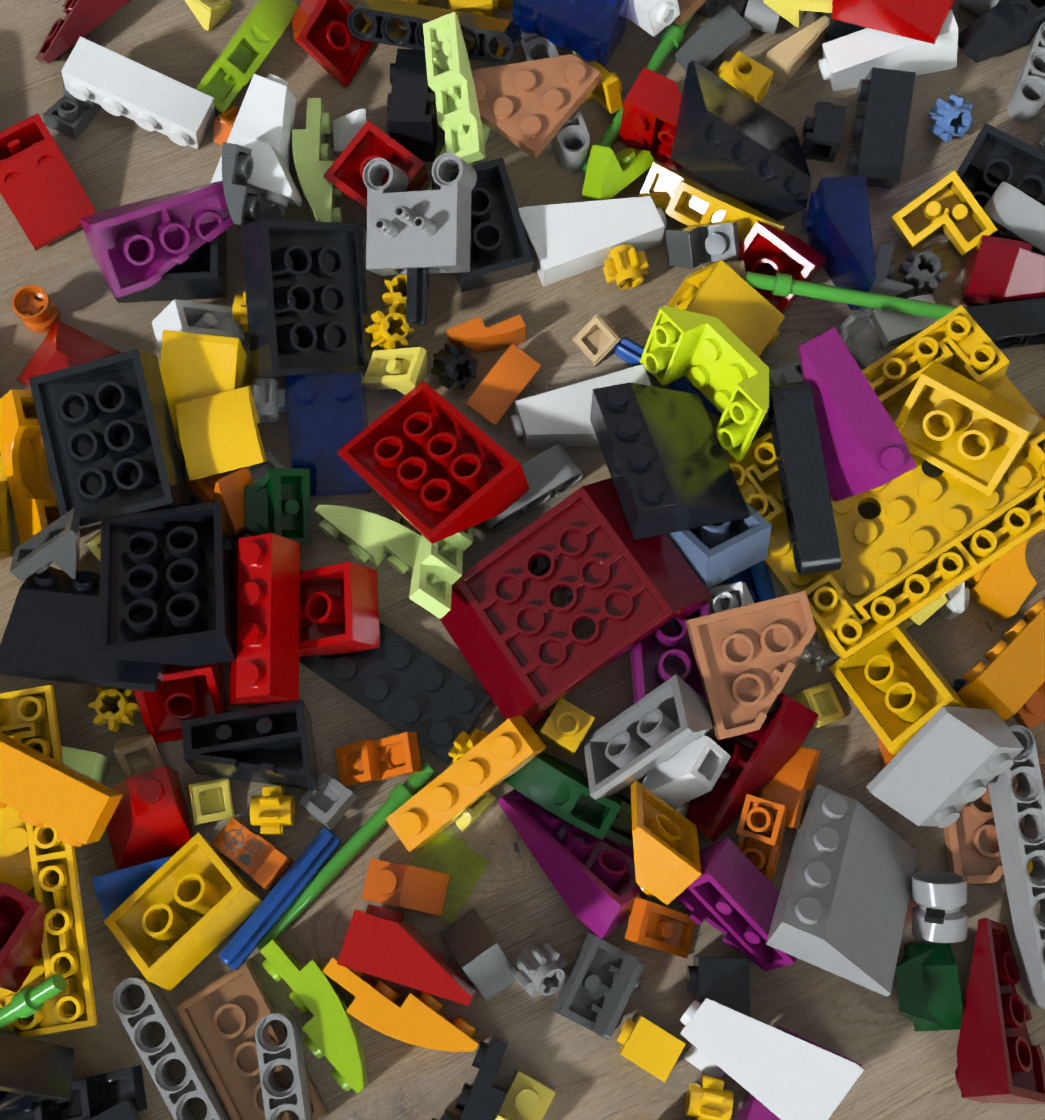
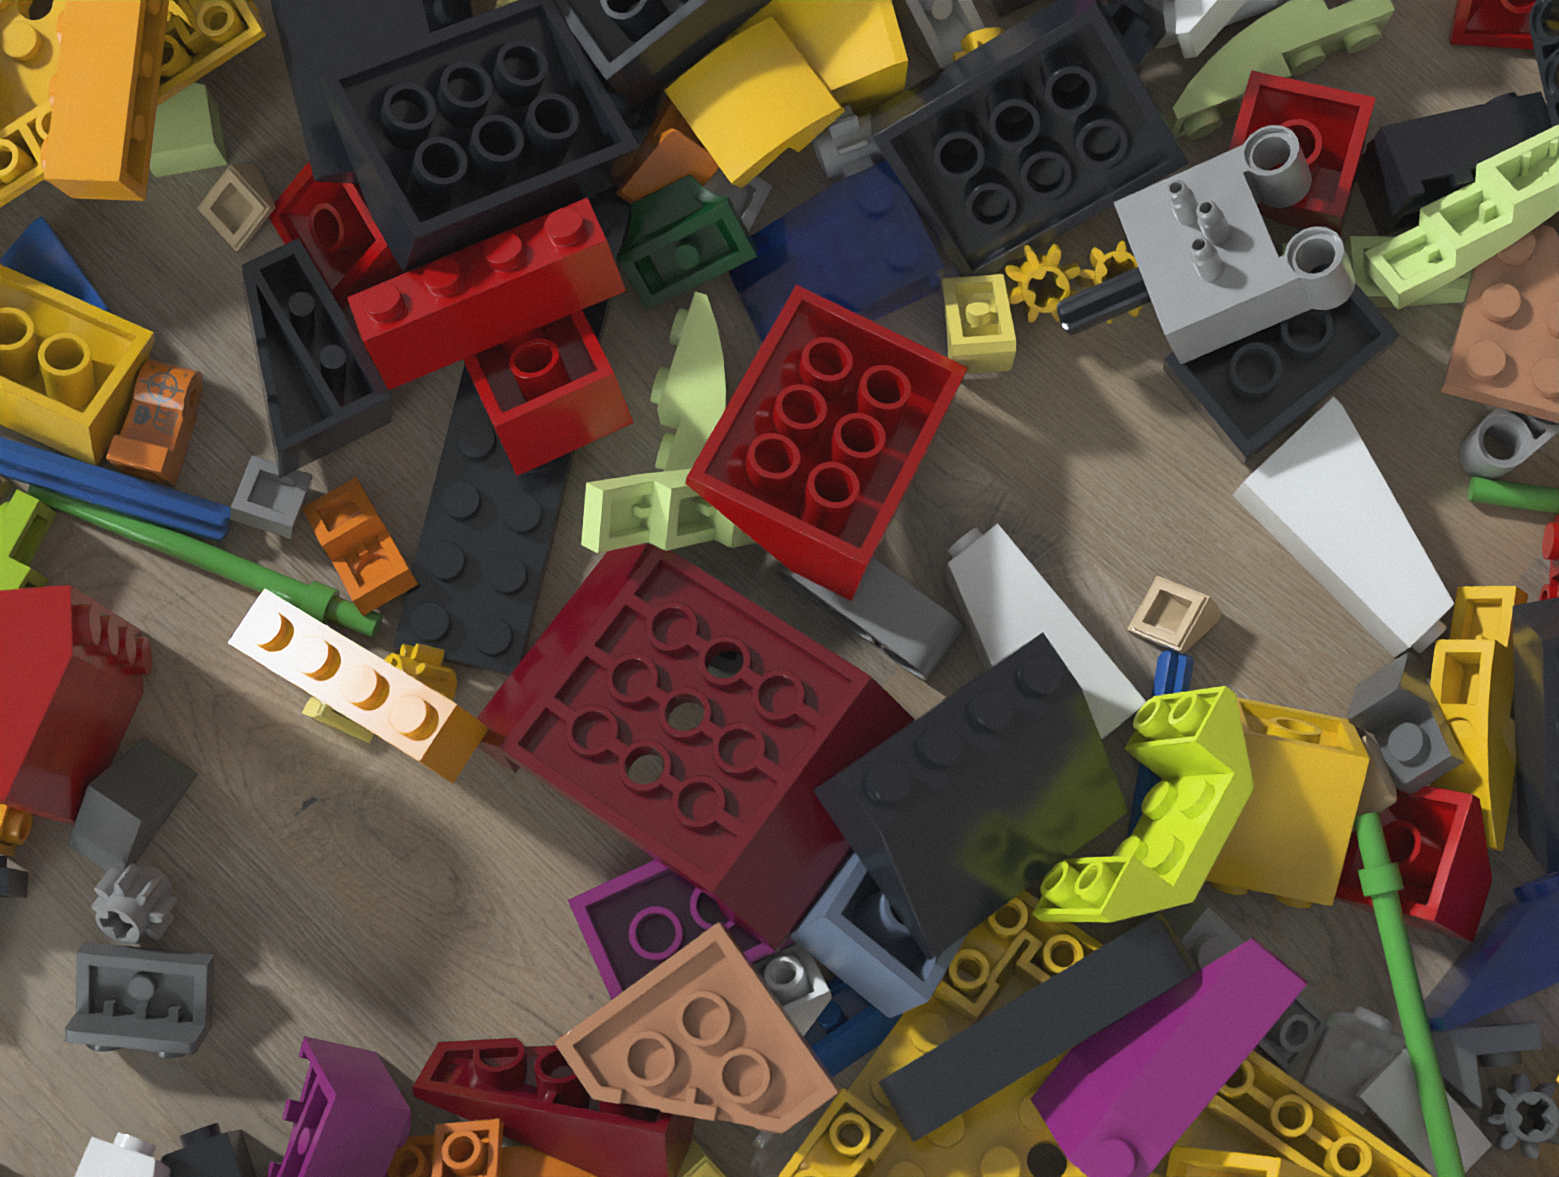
camera: 70 degrees right, 5 degrees up
(105, 710) = (280, 127): yellow gear -> none
(149, 818) = (156, 257): red slope -> none
(210, 800) = (214, 331): light yellow slope -> none
(272, 810) = (226, 424): yellow gear -> none
(346, 128) = (1372, 76): white slope -> none
(406, 886) = (186, 662): orange slope -> none
(454, 366) = (1024, 407): black gear -> none
(454, 859) = (226, 710): clear neon green piece -> none
(493, 338) = (1089, 420): orange slope -> none
(503, 384) = (1028, 497): orange slope -> none
(566, 727) = (506, 806): yellow brick -> none
(567, 795) = (398, 872): dark green slope -> none
(588, 872) = (311, 917): magenta wedge -> none
(611, 173) = (1466, 526): lime slope -> none
(625, 266) = (1314, 612): yellow gear -> none
(644, 736) = (521, 925): light grey slope -> none
(649, 1046) = (79, 1104): yellow brick -> none
(660, 928) = (255, 1058): orange slope -> none
(662, 846) = (371, 1012): light orange slope -> none
(688, 772) = (507, 1008): white slope -> none

